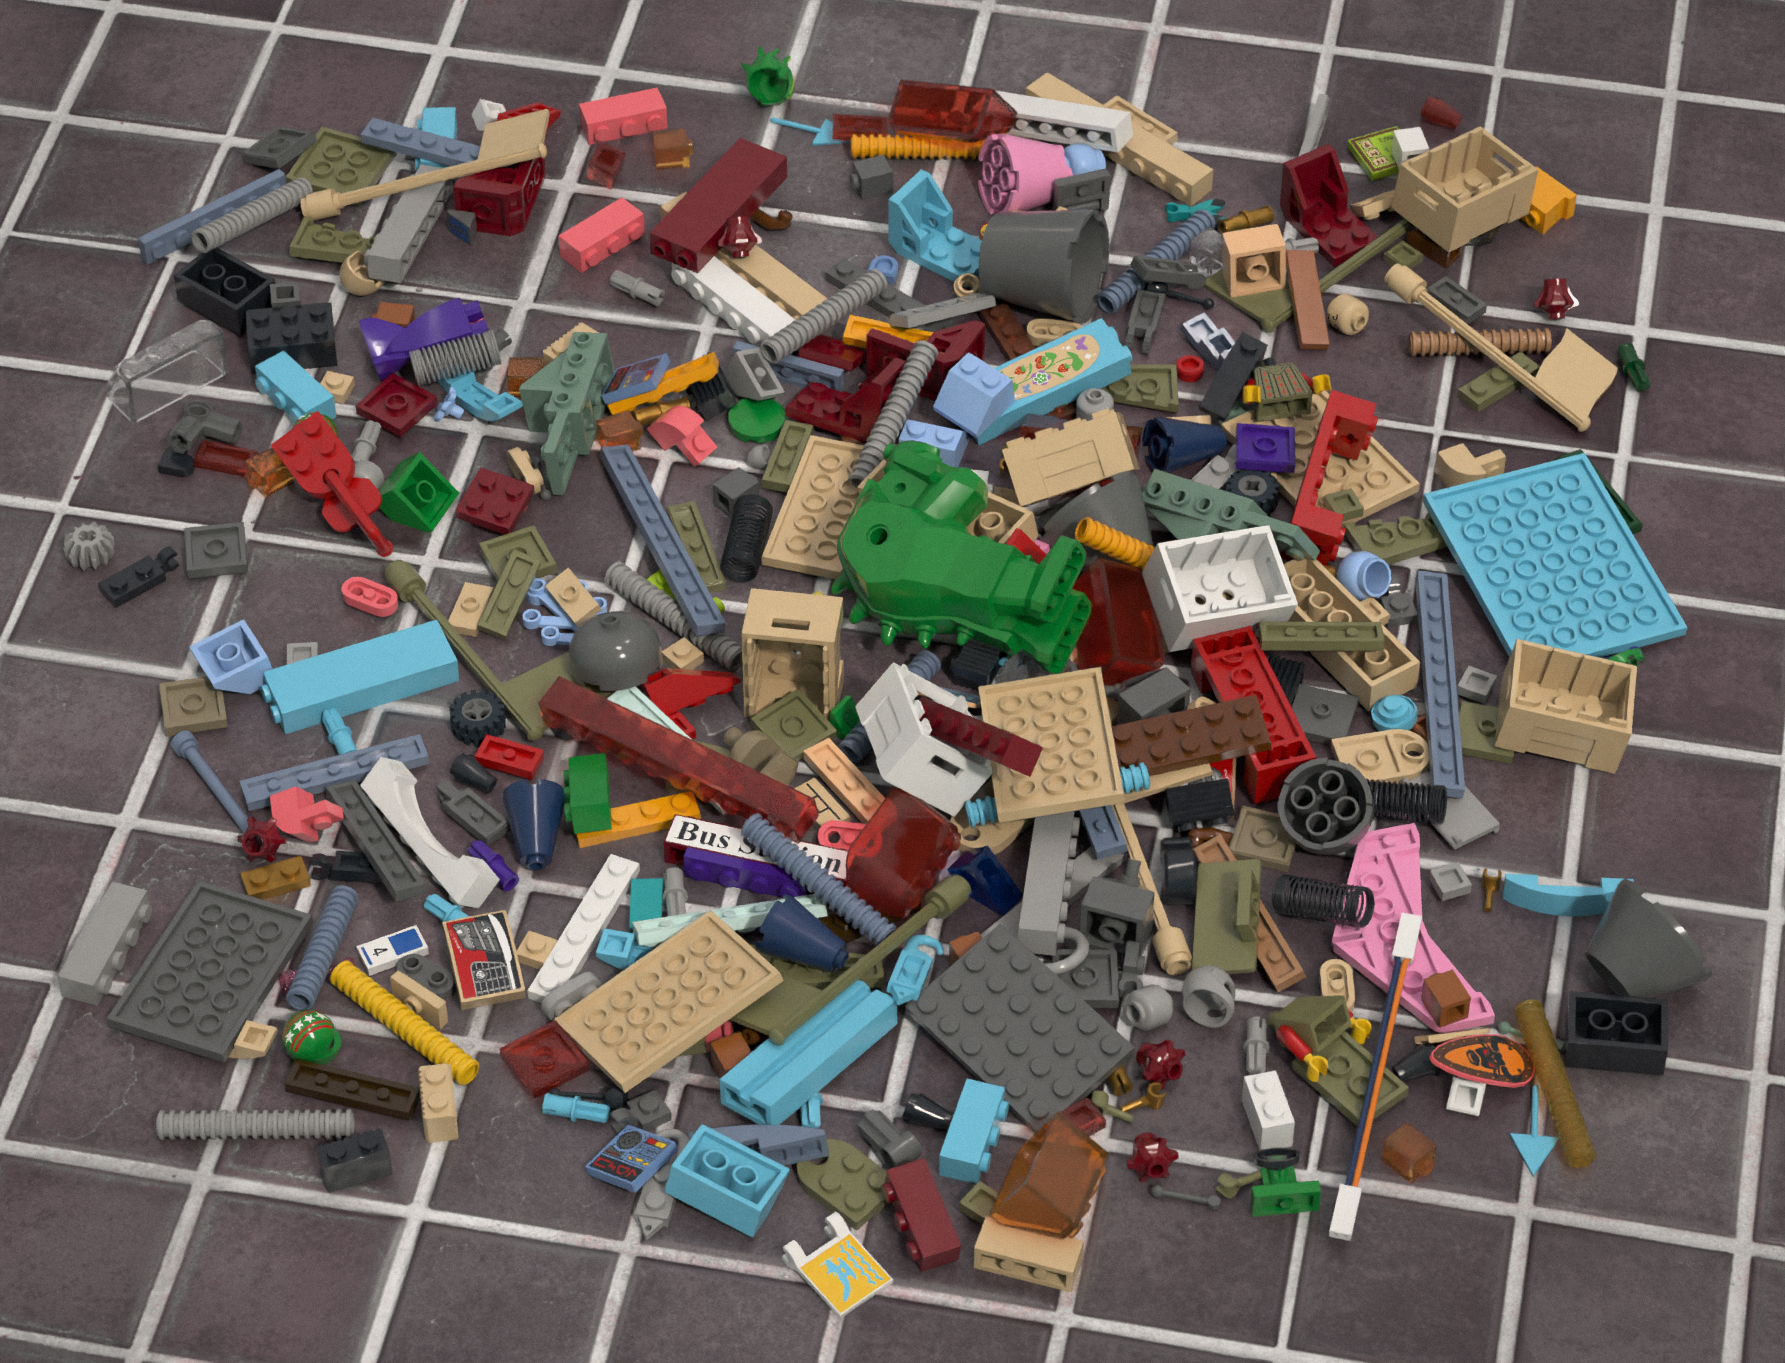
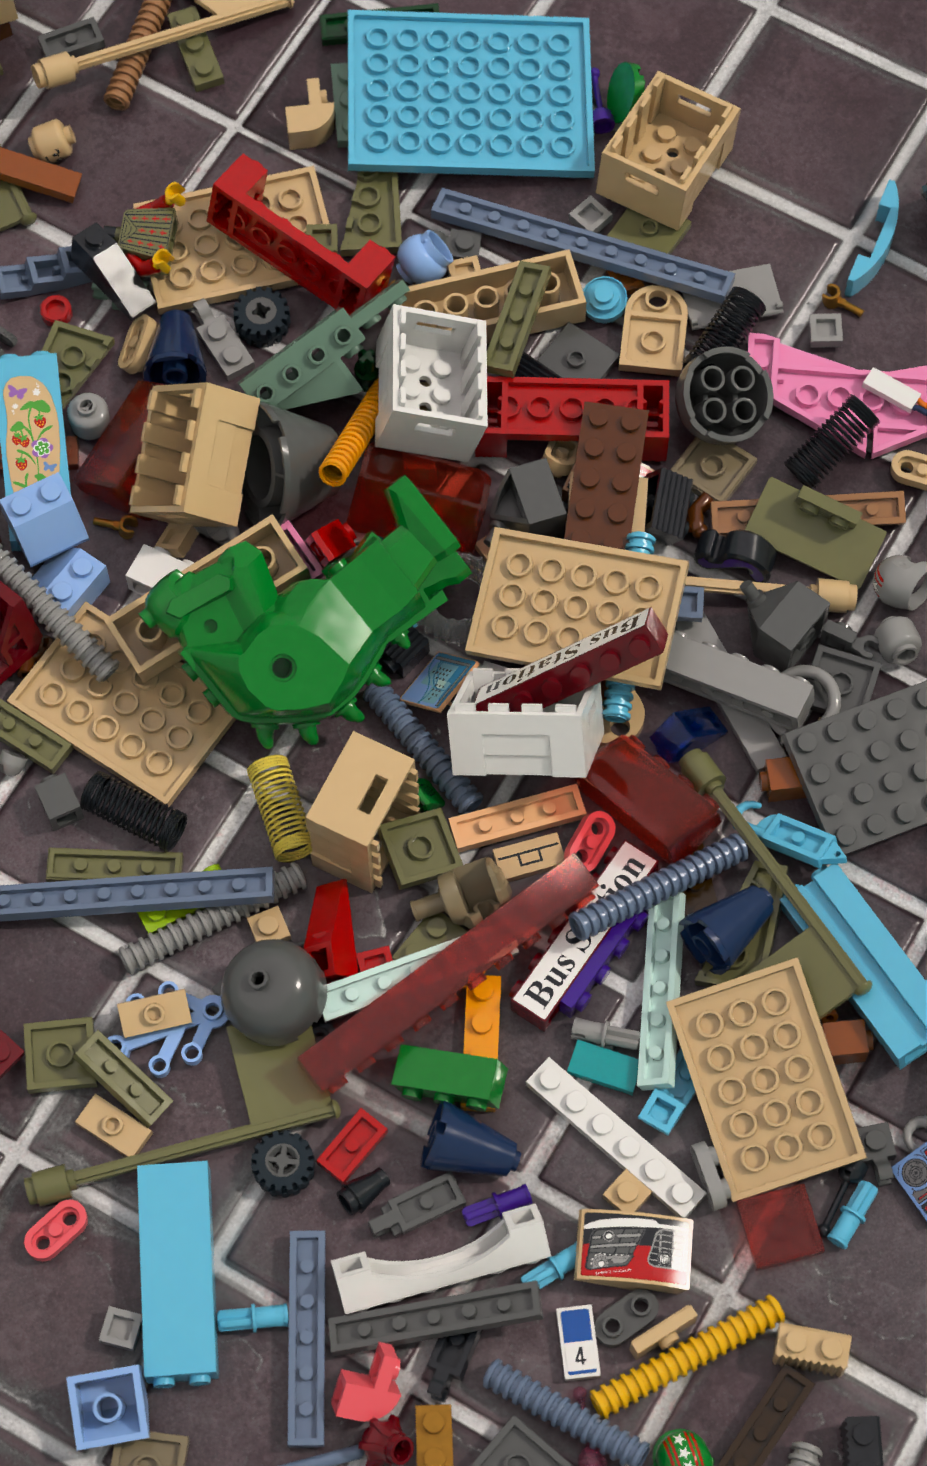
camera: 70 degrees left, 20 degrees up
(1265, 448) = (216, 280): dark purple tile -> none

